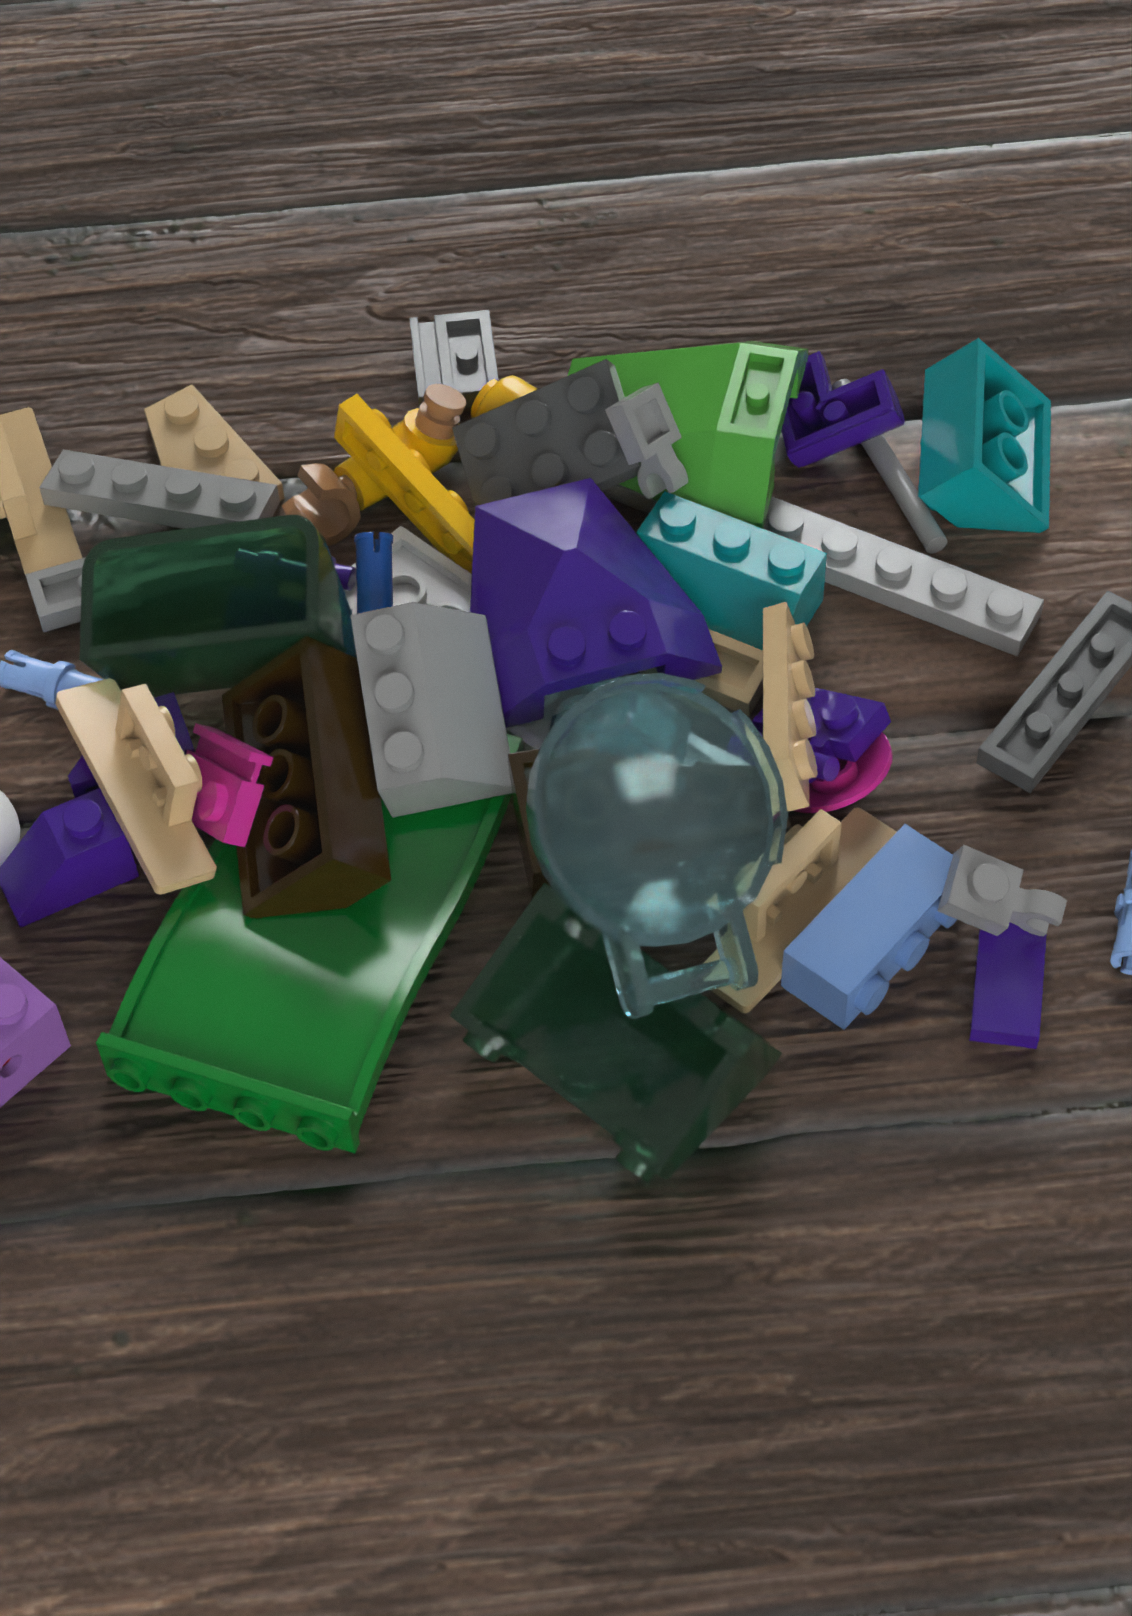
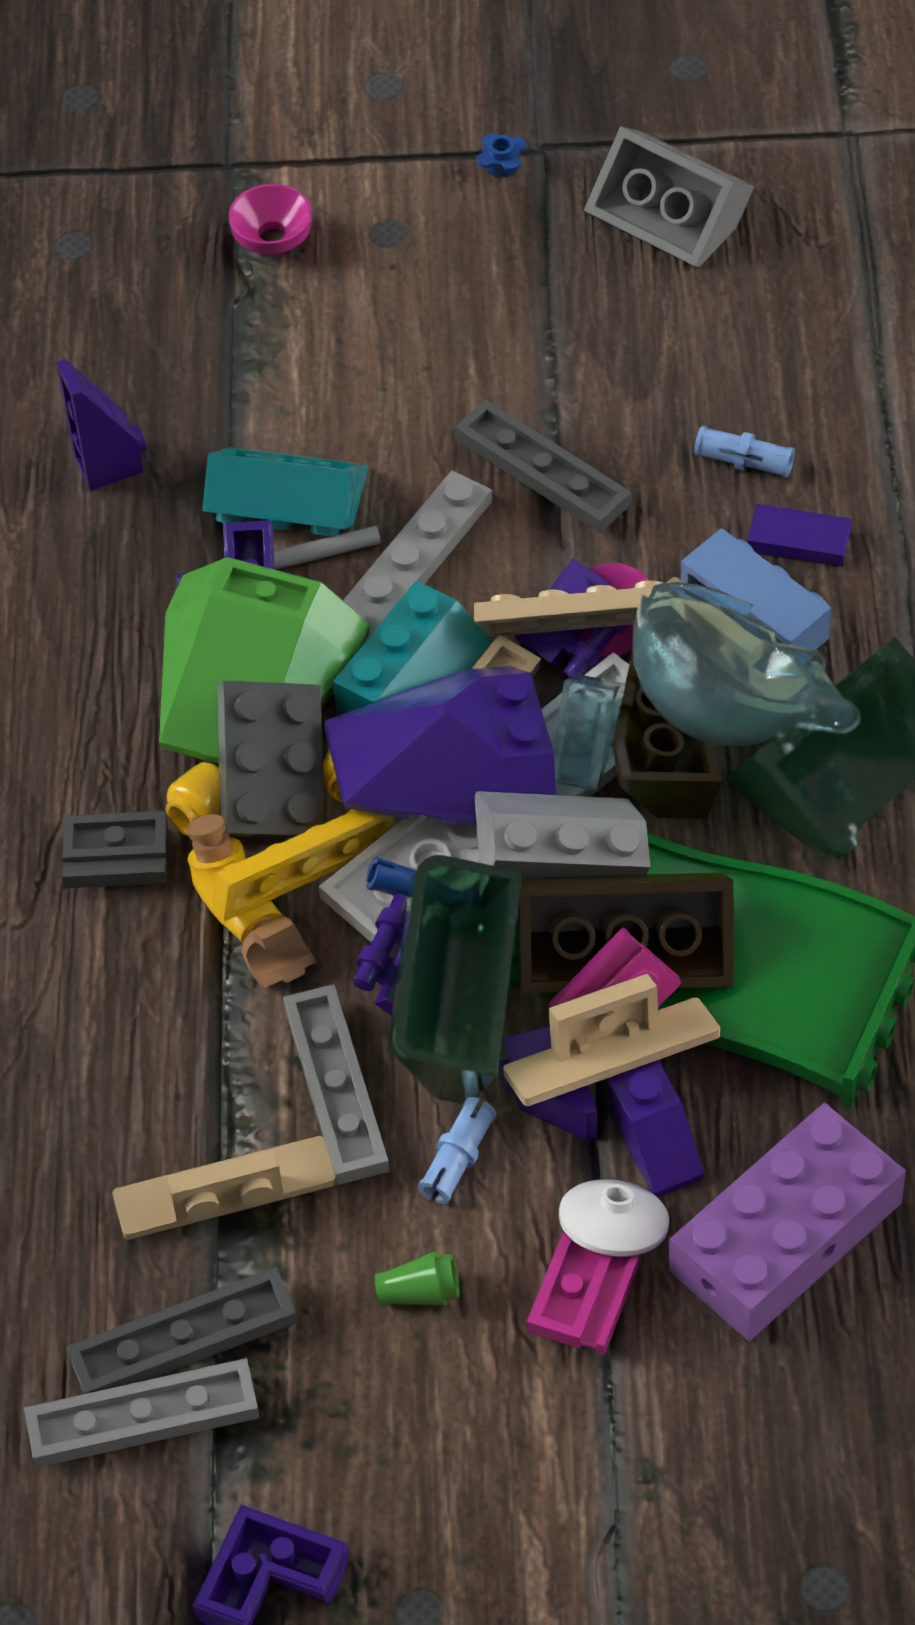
camera: 85 degrees left, 0 degrees up
(154, 492) = (258, 1065): light grey plate -> none
(198, 439) = (207, 1045): tan wing -> none
(646, 435) = (301, 665): light grey plate -> none
(988, 896) = (748, 518): light grey plate -> none
(1013, 246) = (99, 431): none -> dark purple slope

